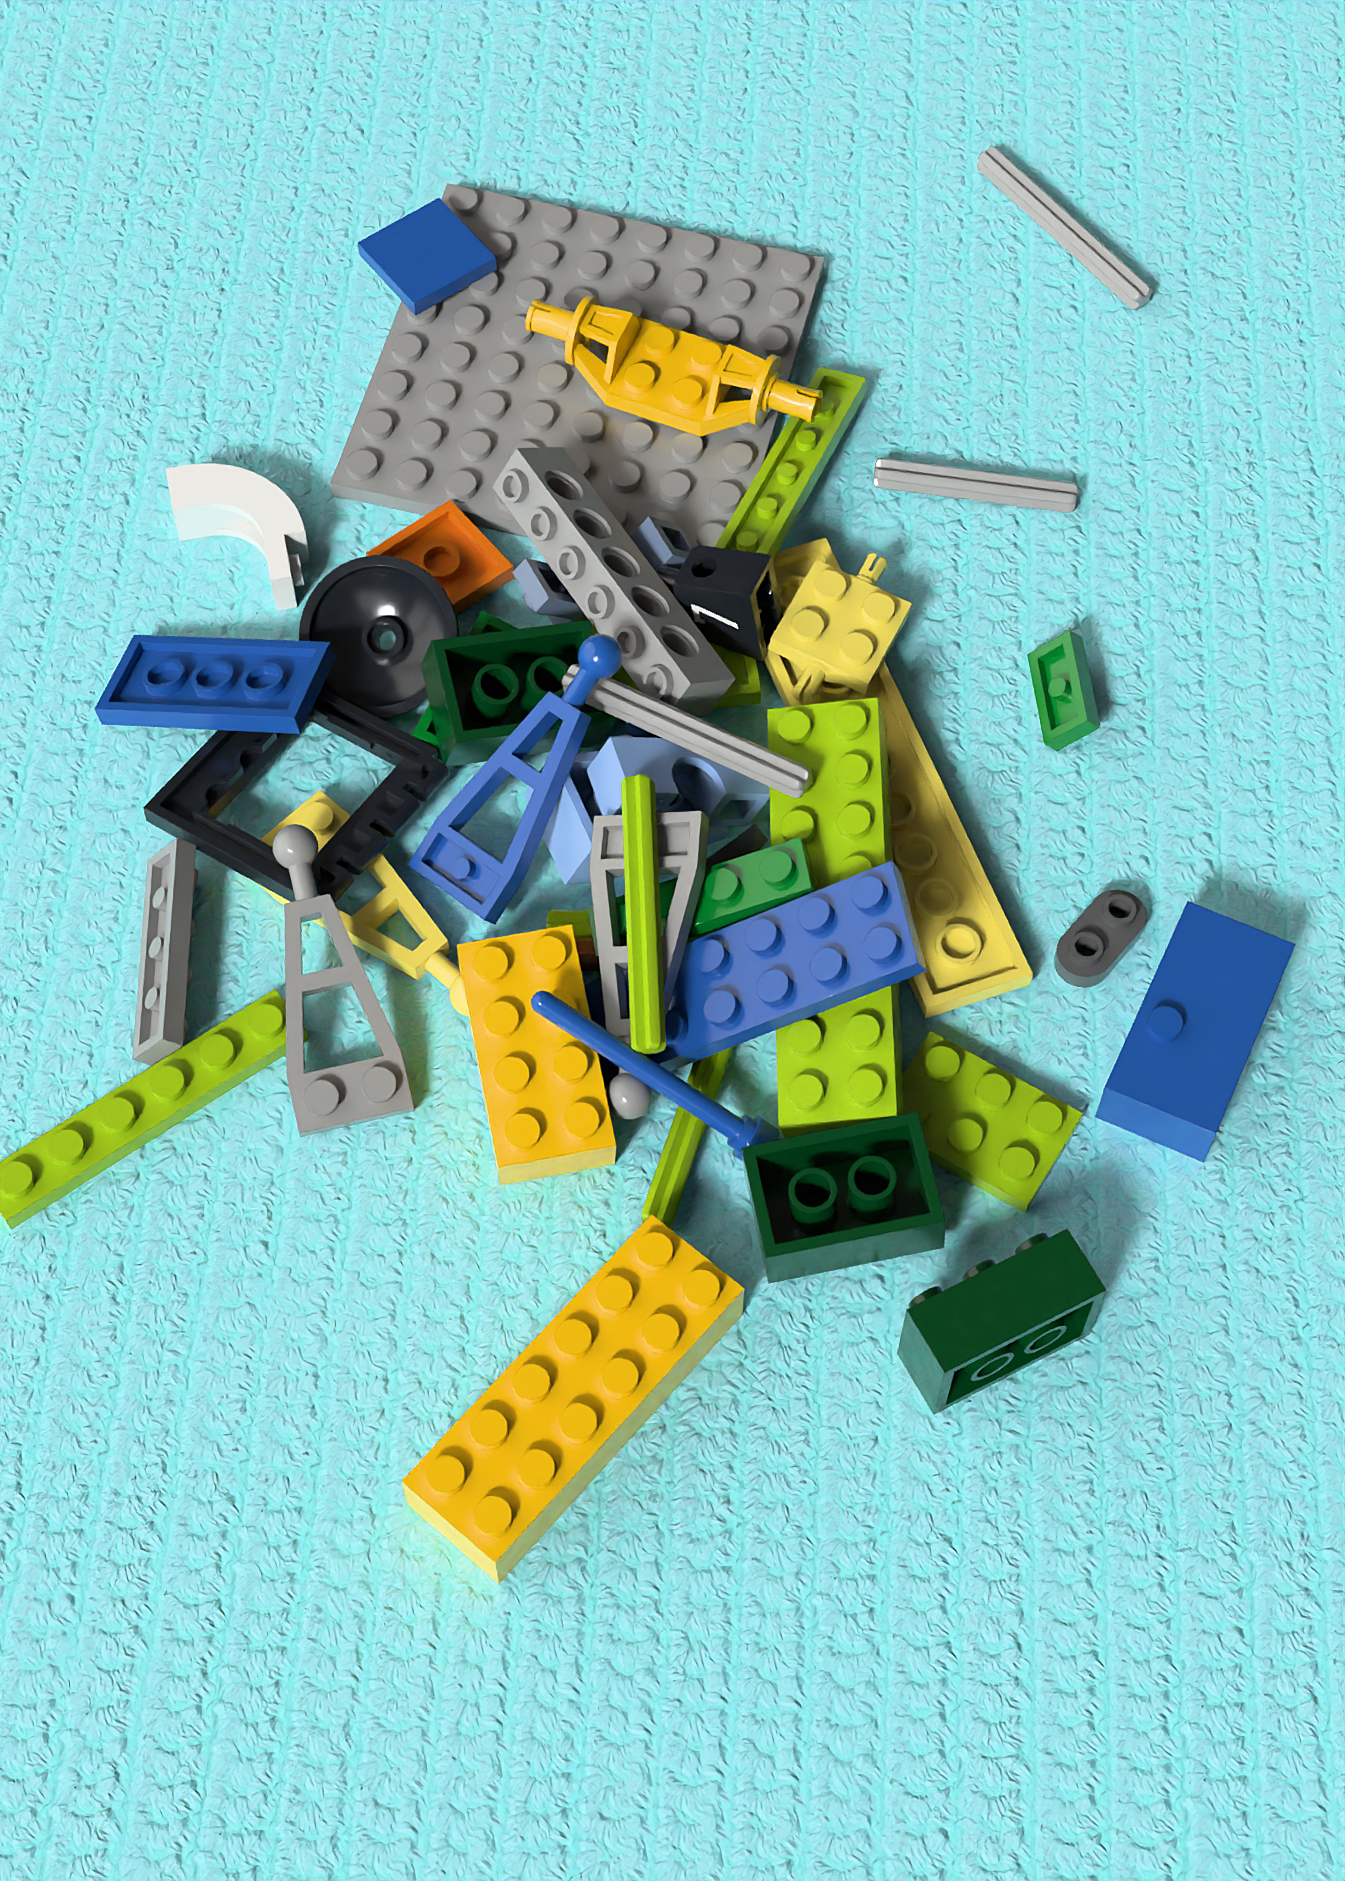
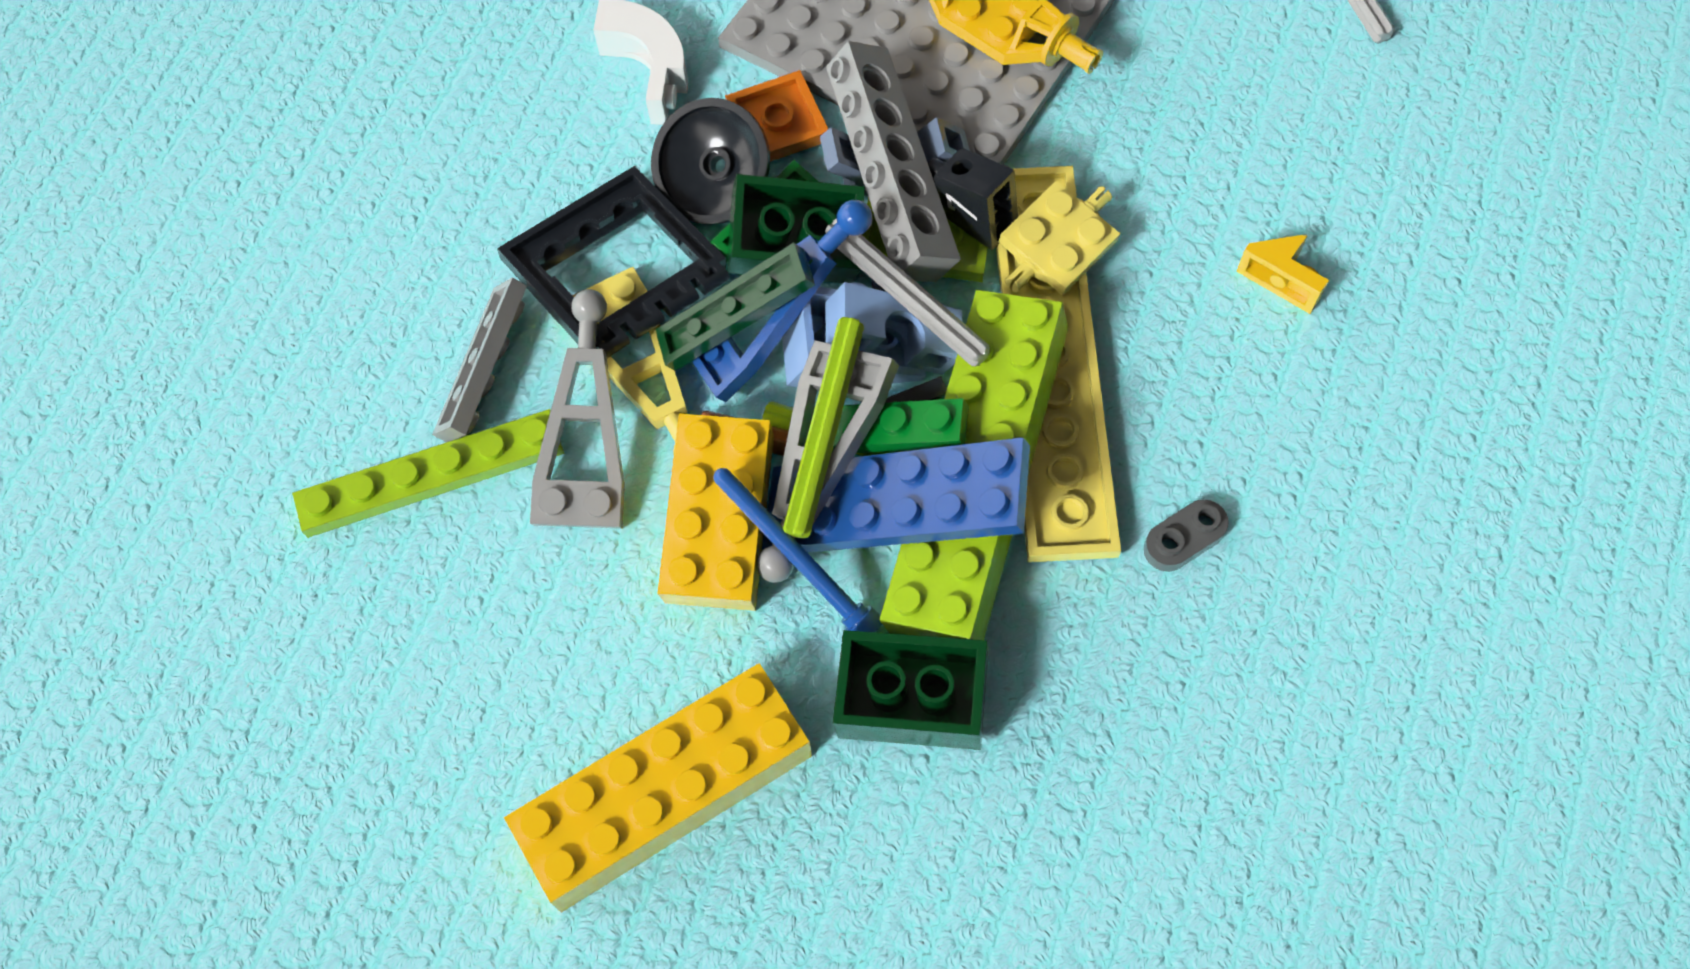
camera: 20 degrees right, 5 degrees up
(216, 683) = (581, 168): blue plate -> none
(478, 802) = (735, 306): none -> dark green plate
(683, 1143) = (808, 611): lime axle -> none
(793, 466) = (1064, 106): lime plate -> none
(975, 485) = (1205, 152): light grey axle -> none
(986, 1121) = (1046, 657): lime plate -> none
(999, 1319) = (1001, 822): dark green brick -> none
(1063, 691) = (1219, 331): green plate -> none
(1104, 603) = (1275, 268): none -> yellow slope
(1194, 1031) = (1235, 631): blue brick -> none

